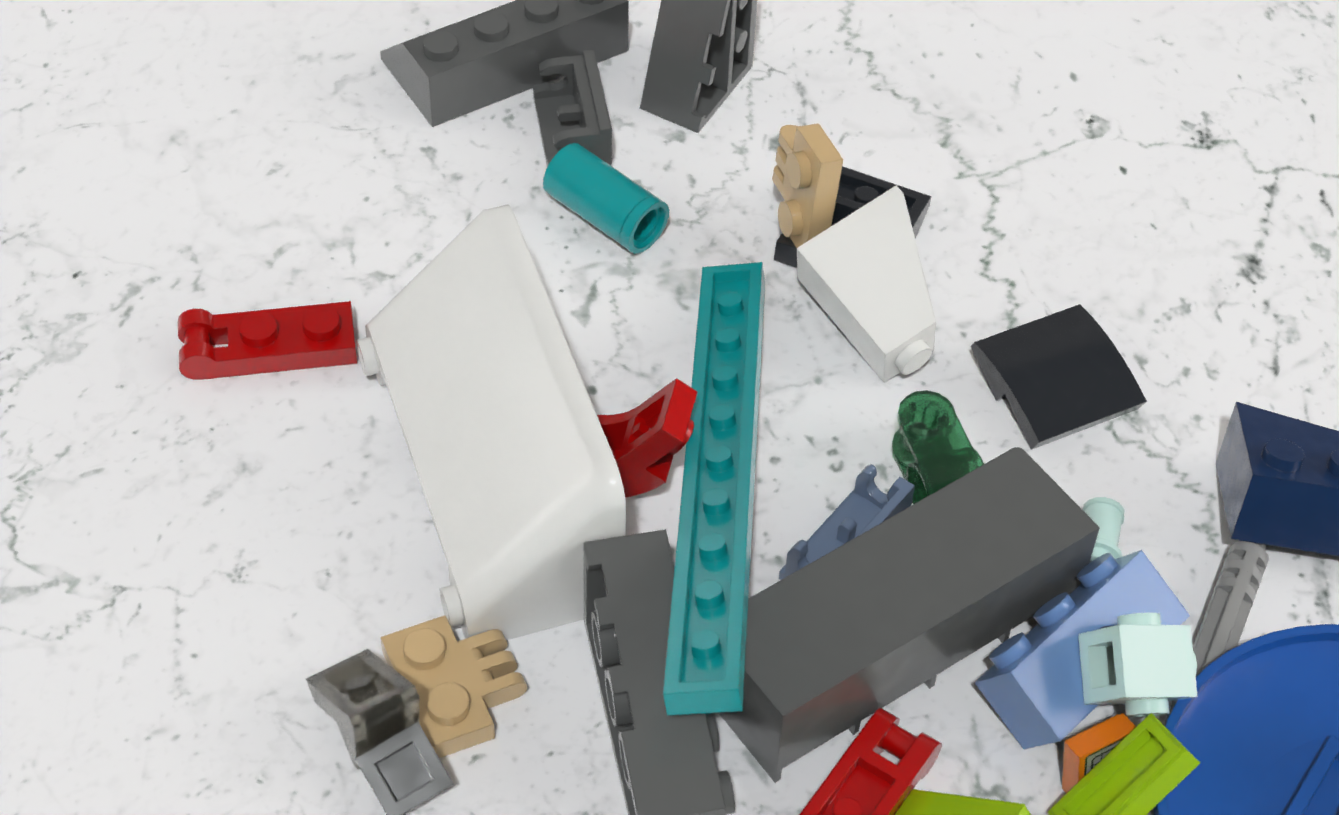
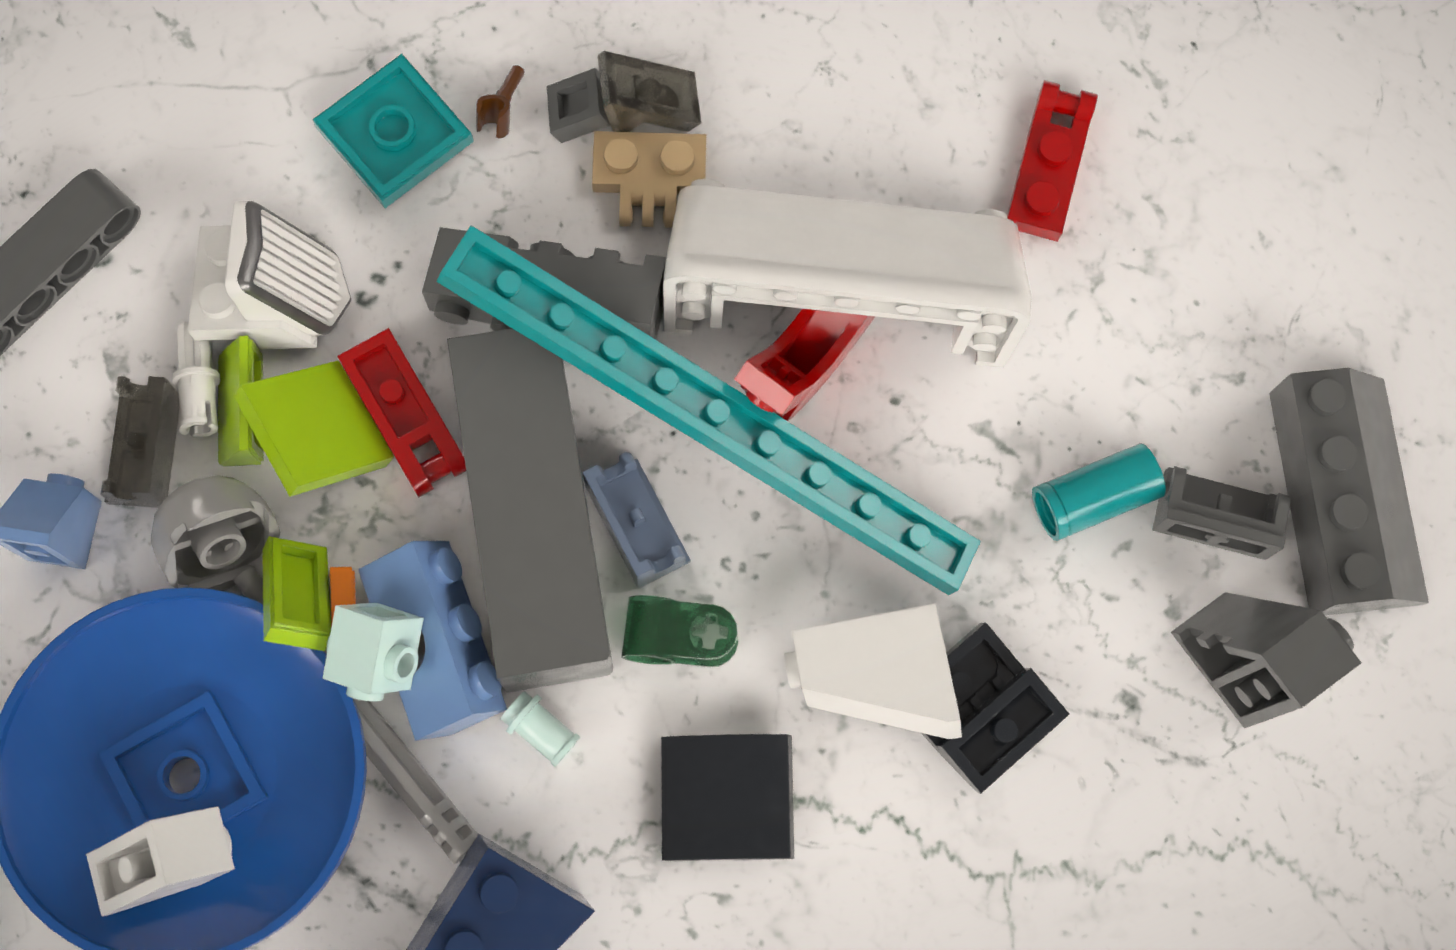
camera: 110 degrees right, 25 degrees up
(808, 181) = (1008, 644): tan hinge -> none

